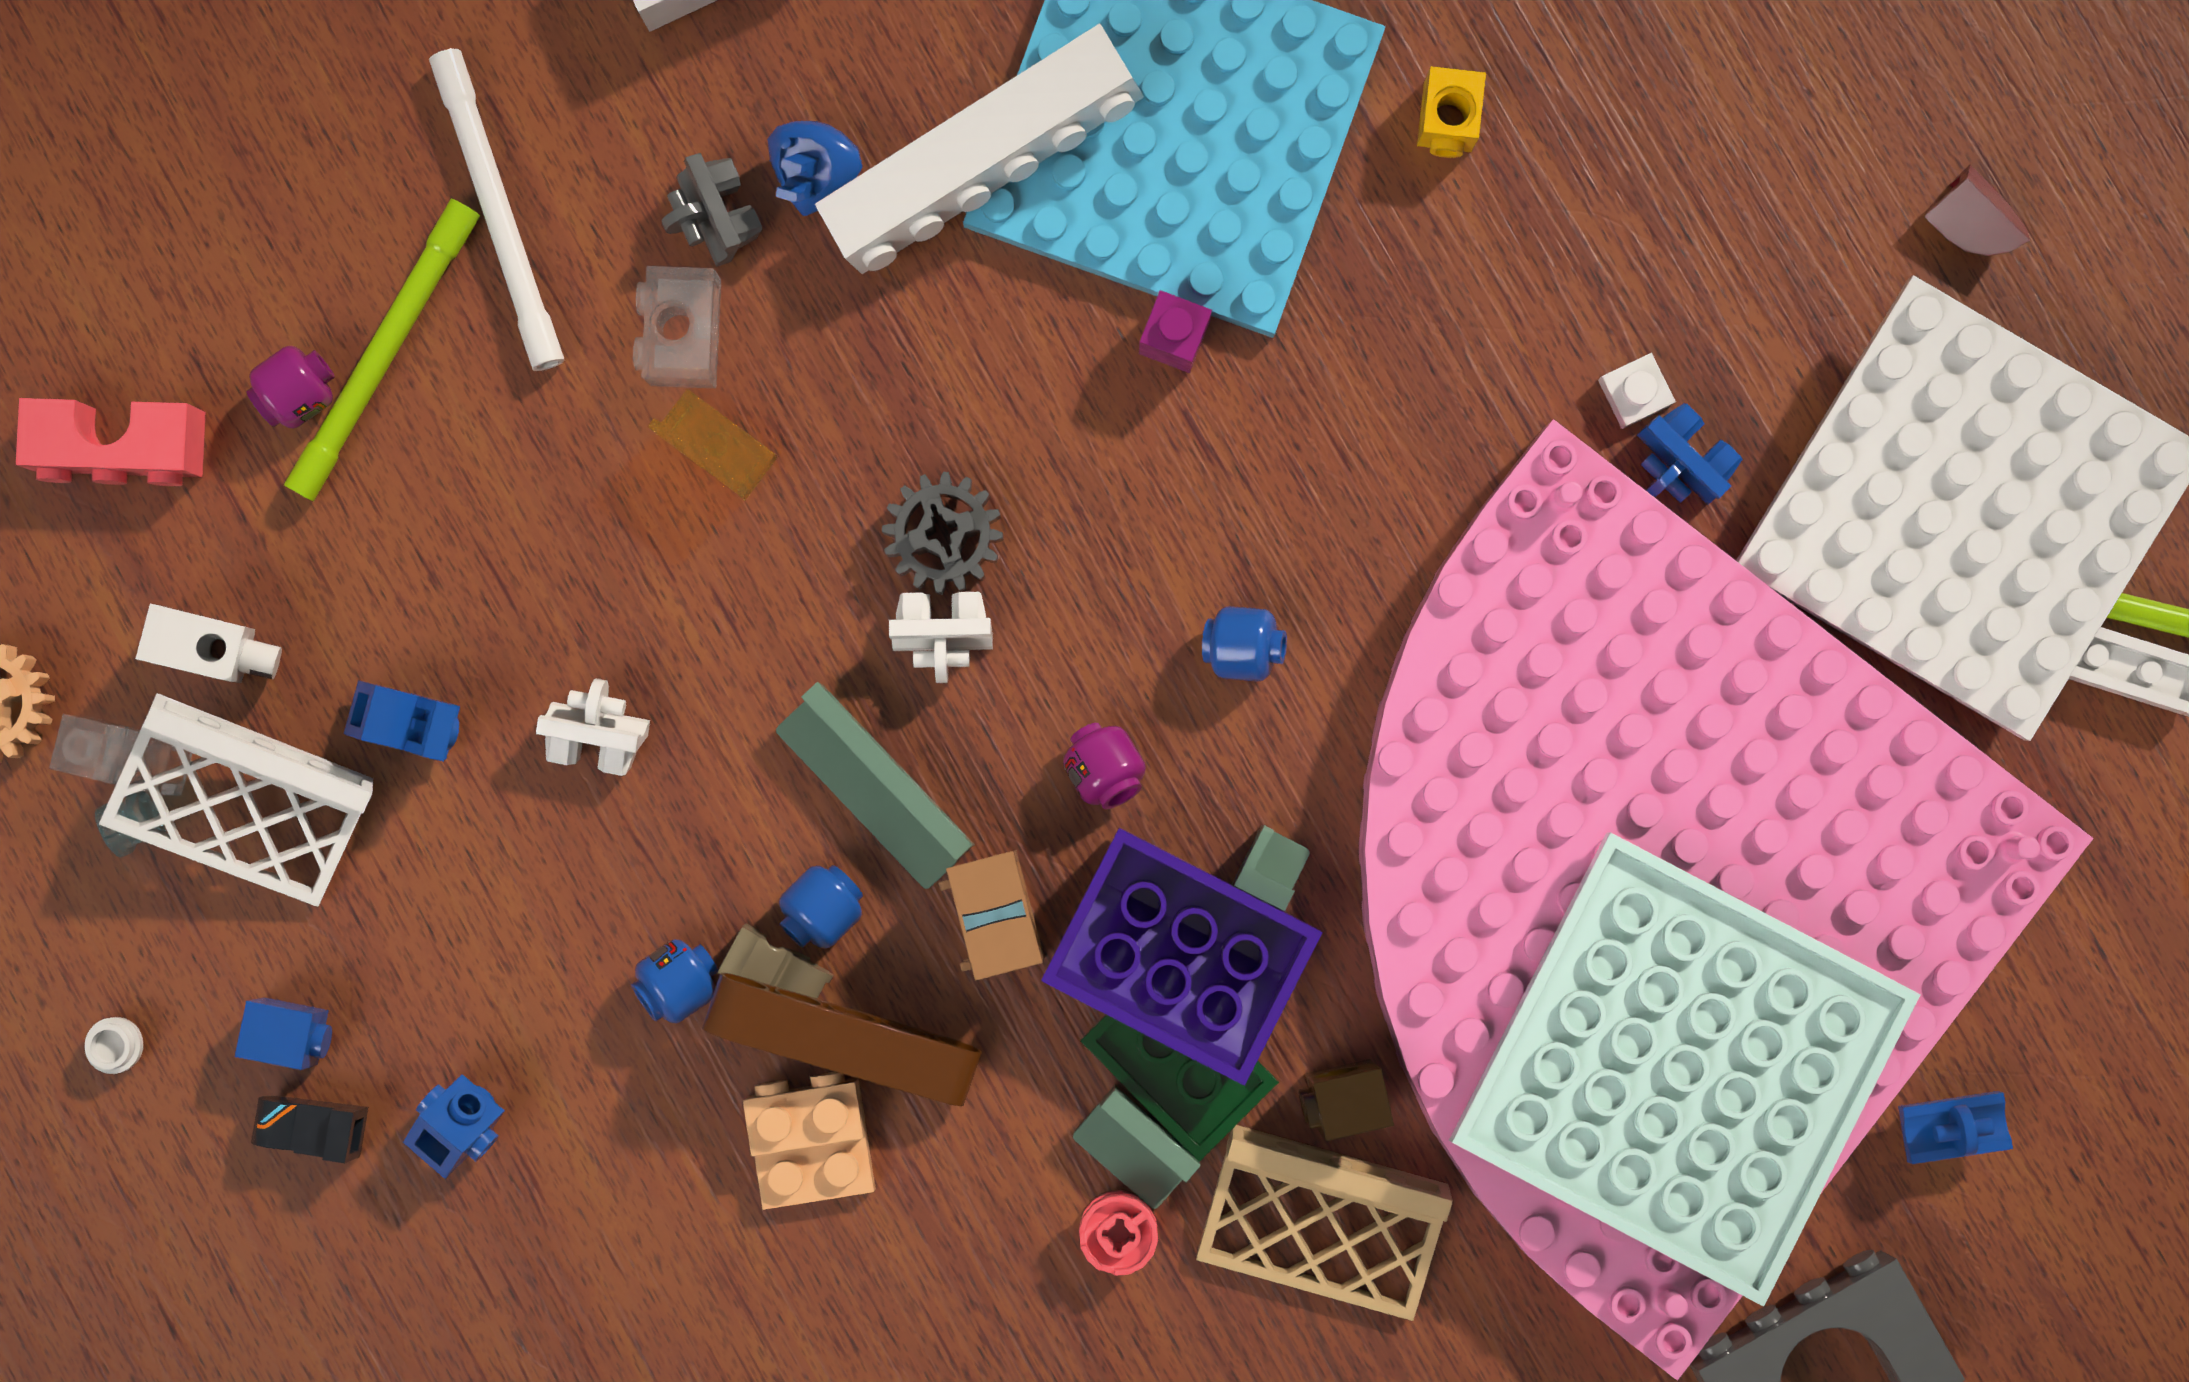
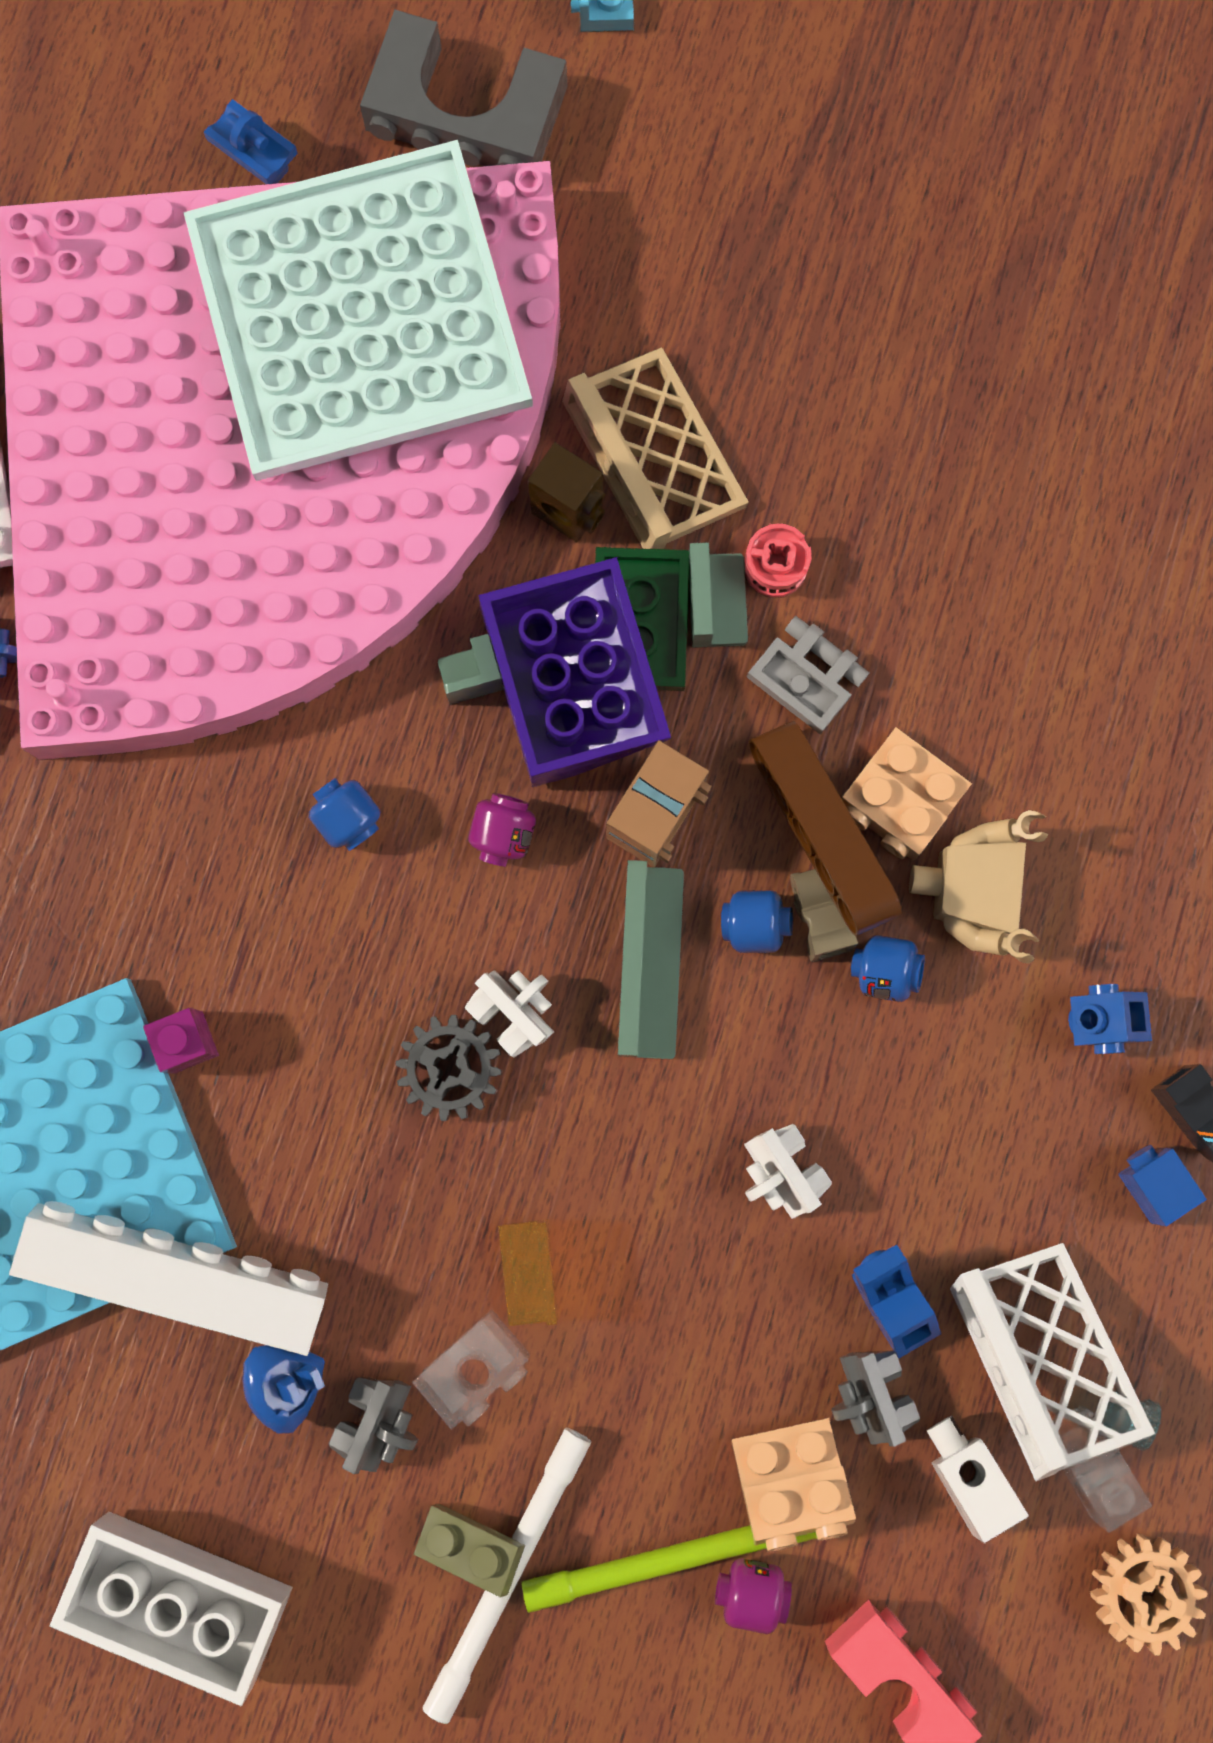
camera: 135 degrees left, 5 degrees down
(343, 500) = (793, 1484): none -> light nougat plate
(351, 623) = (868, 1400): none -> dark grey hips
(542, 195) = (469, 1550): none -> olive plate
(667, 1128) = (982, 886): none -> tan torso
(987, 1145) = (800, 684): none -> light grey plate

